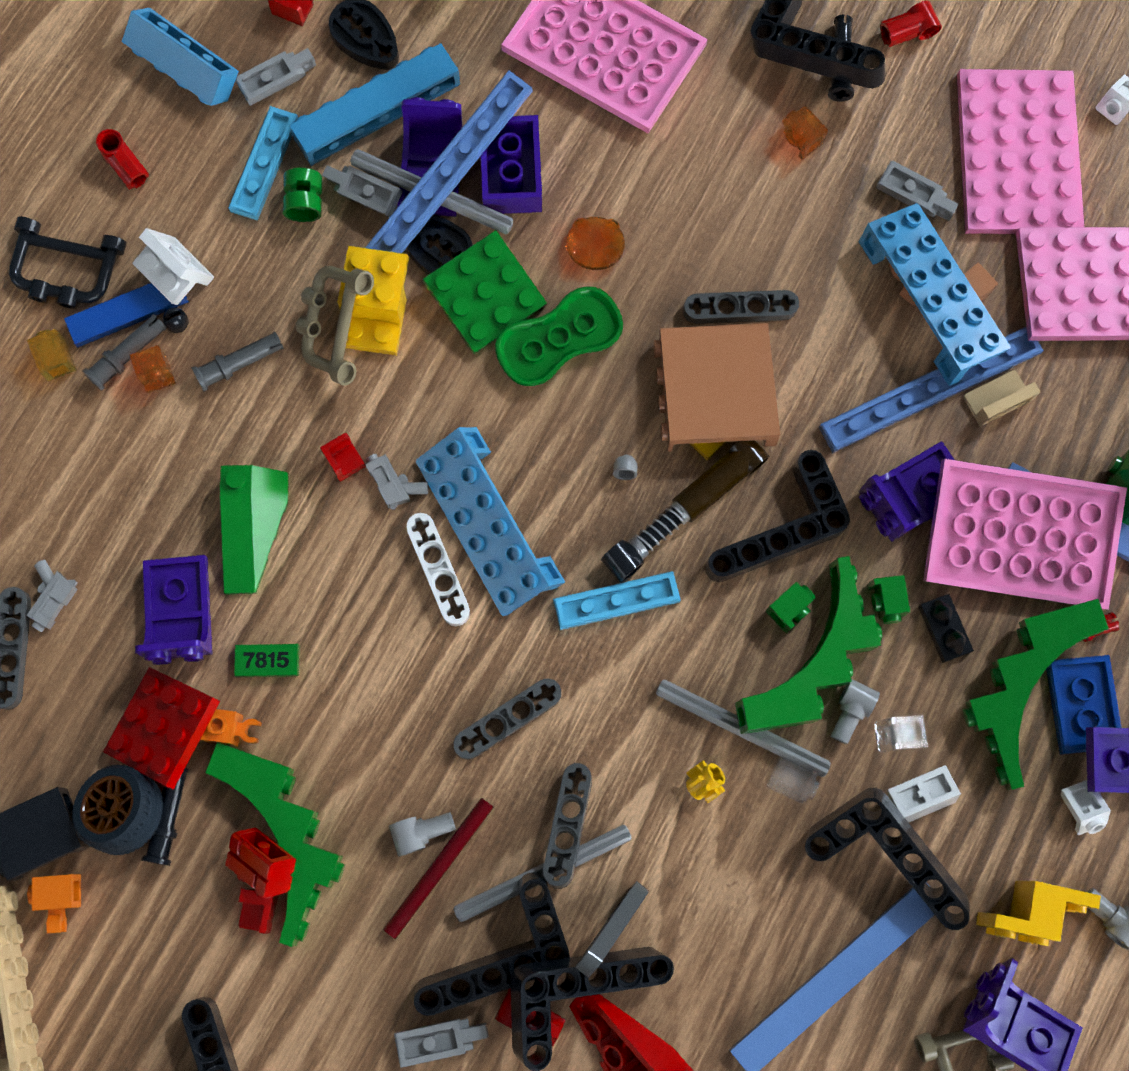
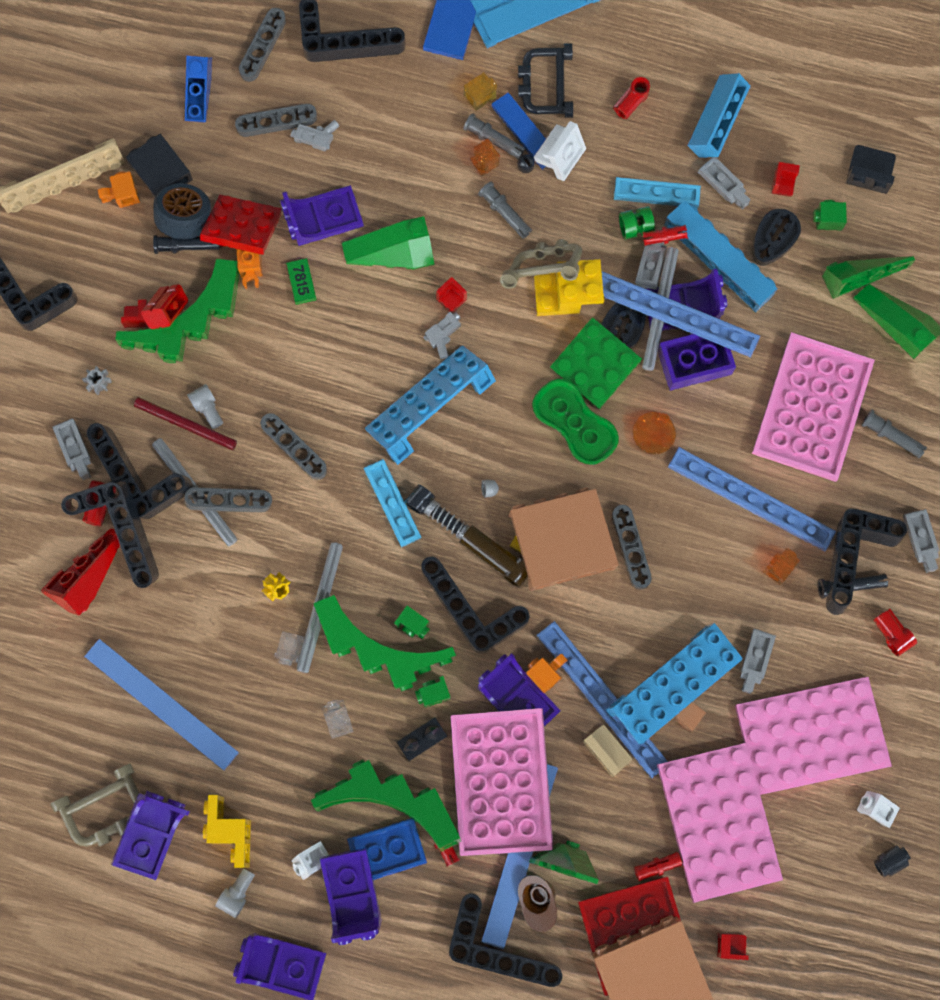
camera: 80 degrees right, 0 degrees up
(332, 159) = (665, 235): none -> red pin
(337, 992) = (92, 377): none -> light grey gear
(438, 569) = (390, 380): white beam -> none
(612, 929) = (162, 539): dark grey beam -> none
(706, 149) = (752, 499): none -> medium blue tile
(856, 702) = (353, 682): light grey pin -> none
(890, 449) = (545, 673): none -> orange brick
(896, 848) = (252, 723): black beam -> none
(925, 794) = (295, 739): white hinge -> none

